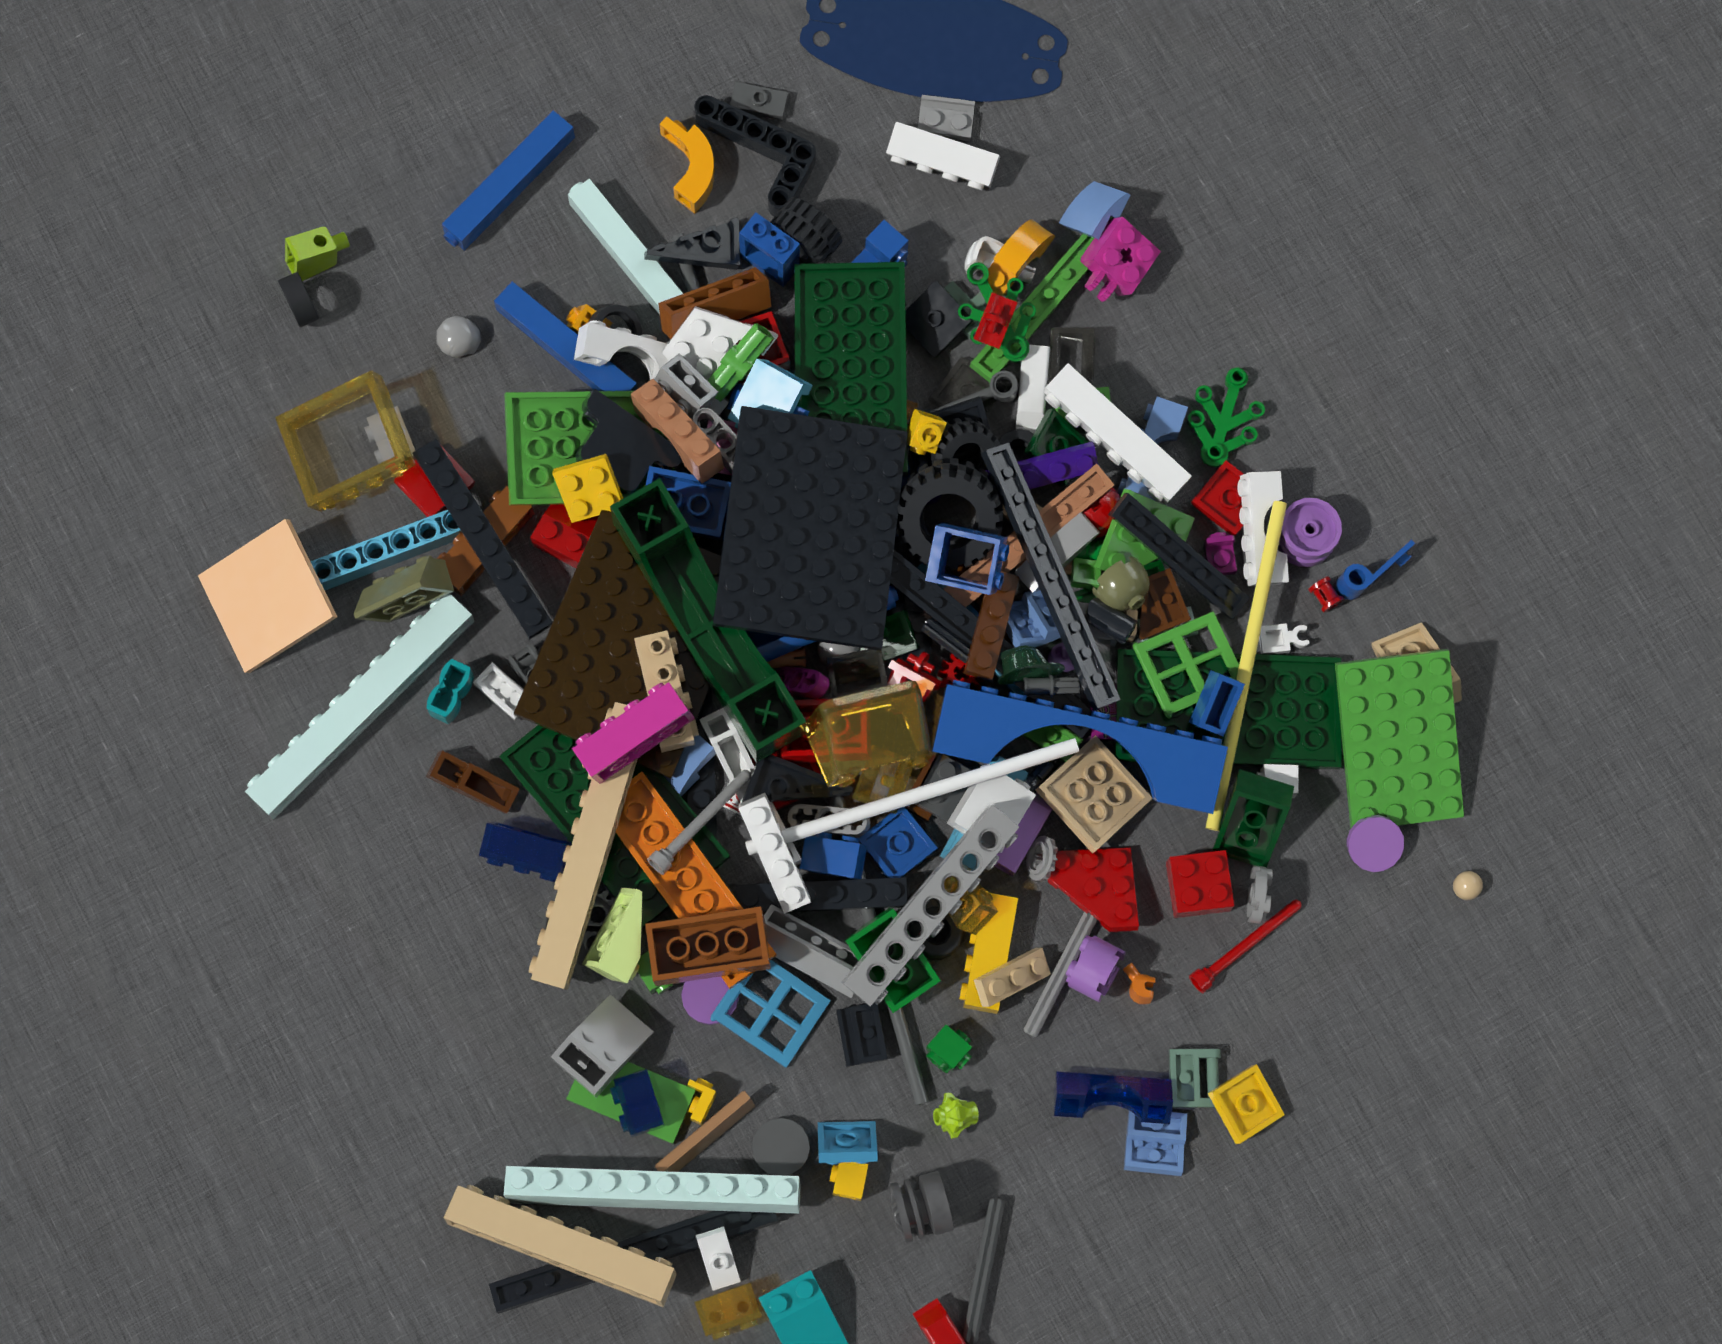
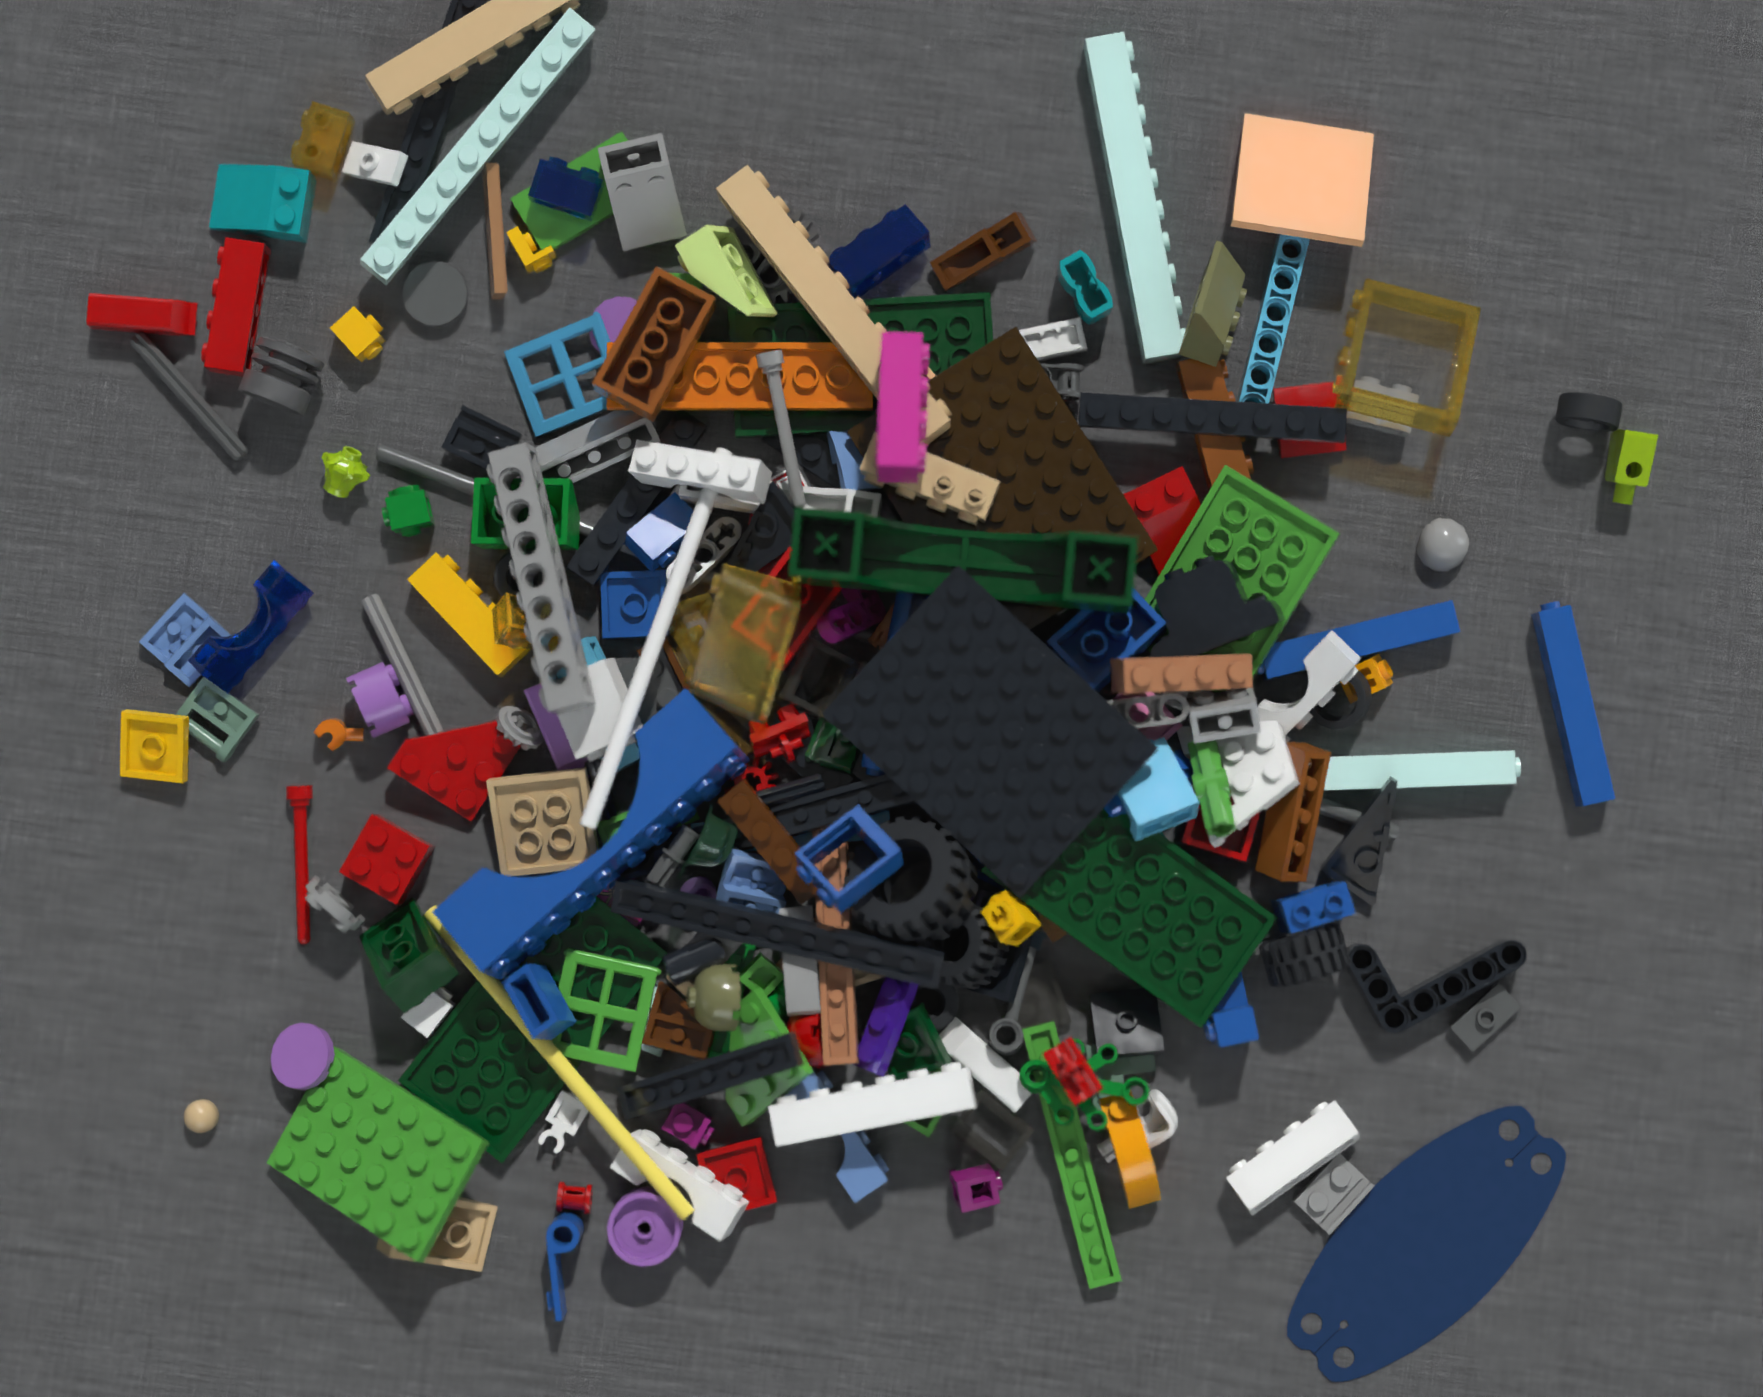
camera: 130 degrees right, 10 degrees up
(587, 487) = (1186, 549): yellow plate -> none
(699, 179) = (1443, 899): light orange arch -> none
(847, 1142) = (390, 352): dark azure plate -> none
(894, 1282) = (236, 306): none -> red brick
(1012, 977) = (427, 614): tan plate -> none
(1093, 208) = (1126, 1266): medium blue slope -> none
(1117, 340) = (979, 1196): none -> magenta brick
(1118, 259) = (1056, 1250): dark pink hinge -> none
(1224, 422) = (818, 1232): green plant -> none

